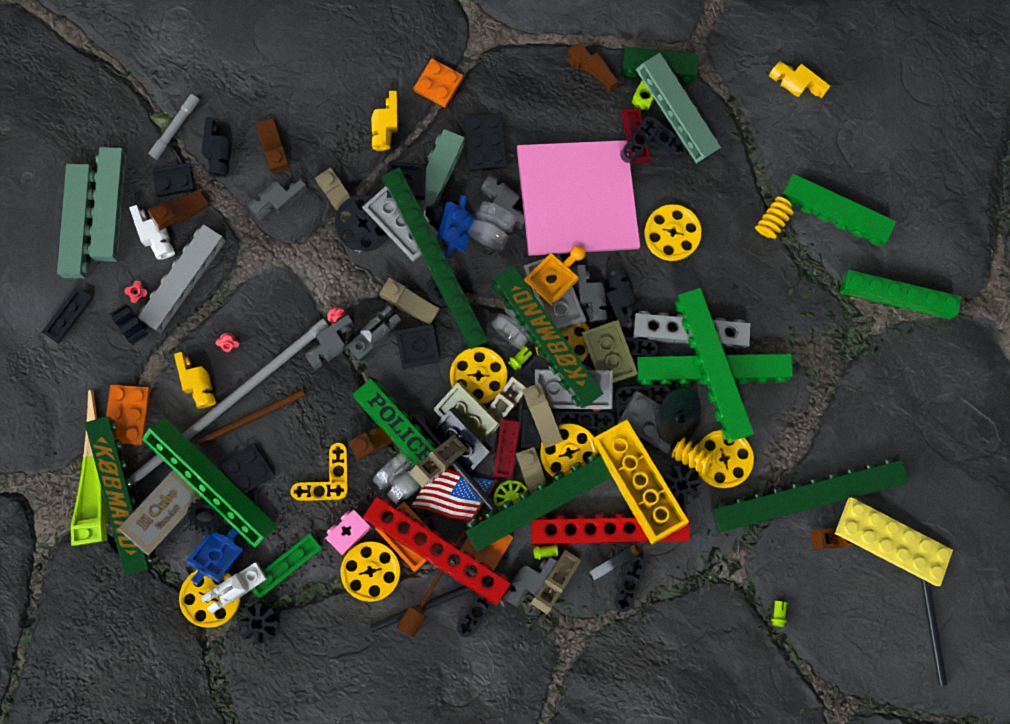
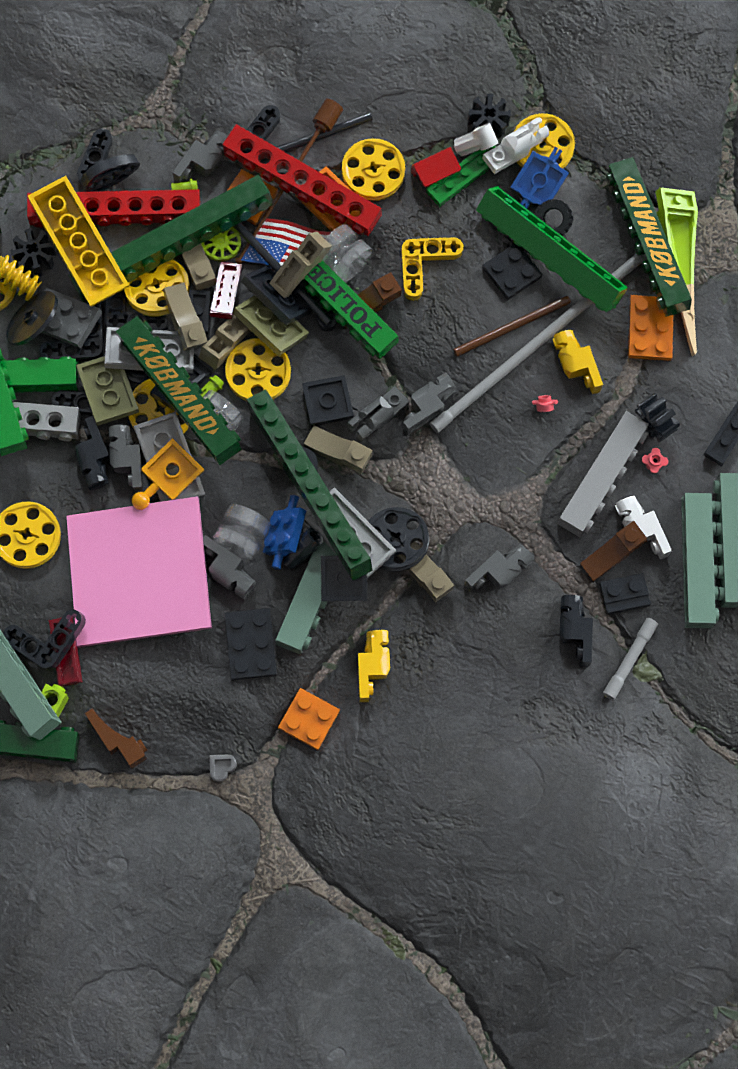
camera: 175 degrees right, 5 degrees down
(159, 512) = (603, 217): light grey tile -> none
(269, 595) = (480, 138): none -> white piece
(272, 146) = (508, 633): reddish brown slope -> none
(311, 570) = (436, 167): none -> red panel
(336, 314) = (421, 433): coral plate -> none
(342, 542) = (401, 195): bright pink brick -> none
(508, 48) = (220, 766): none -> flat silver tile
(556, 582) = (170, 157): dark tan slope -> none

